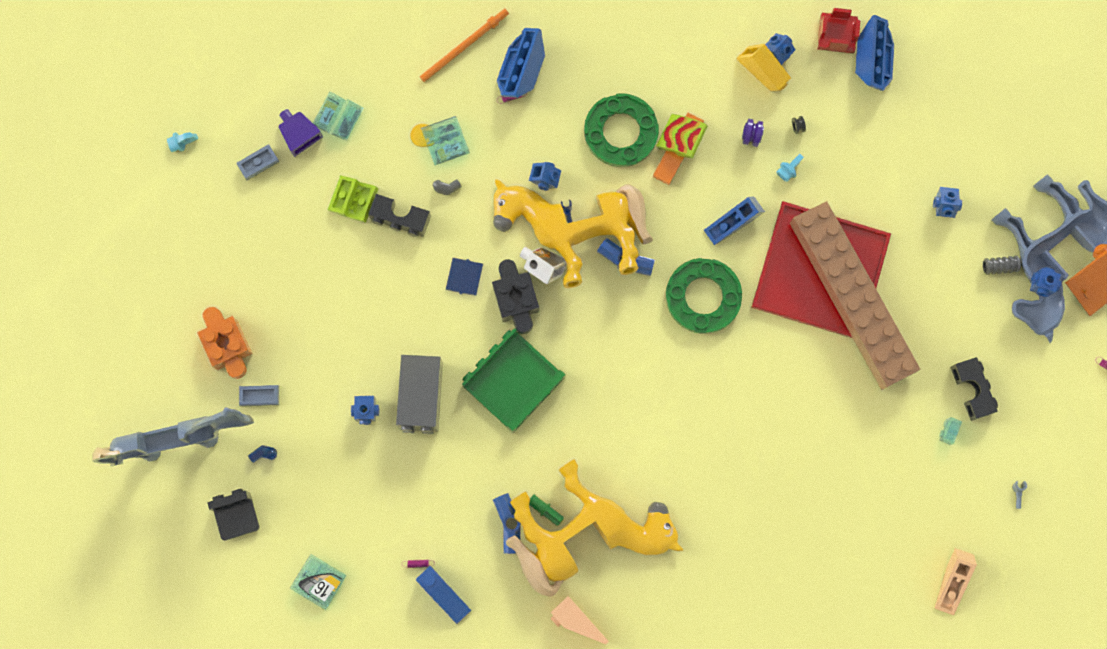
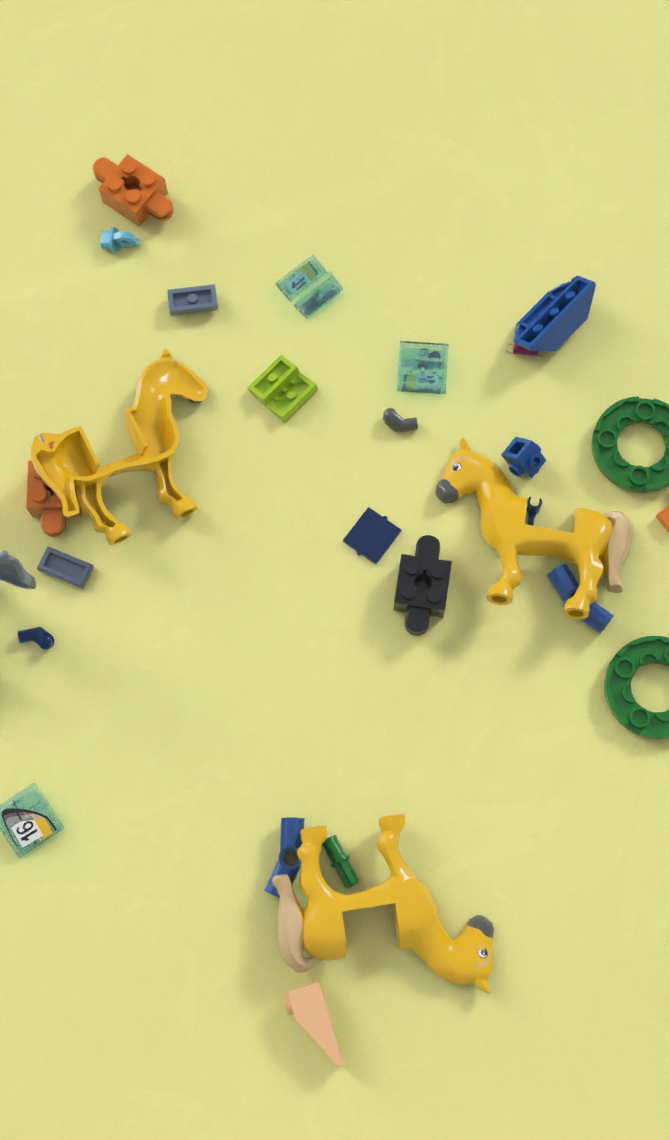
camera: 30 degrees right, 5 degrees down
(175, 99) = (123, 194): none -> orange brick
(277, 273) = (153, 435): none -> yellow animal
(298, 131) = (255, 285): dark purple torso -> none
(362, 403) = (182, 631): blue brick -> none
(414, 222) = (341, 445): black arch -> none
(417, 135) = (392, 349): yellow sticker -> none
(418, 563) = (155, 854): dark pink piece -> none
(419, 393) = (252, 649): dark grey brick -> none
(443, 594) = (167, 906): blue slope -> none
(492, 22) = (540, 256): orange bar -> none
(512, 380) = (373, 684): green panel -> none
(543, 264) = (474, 561): white torso -> none

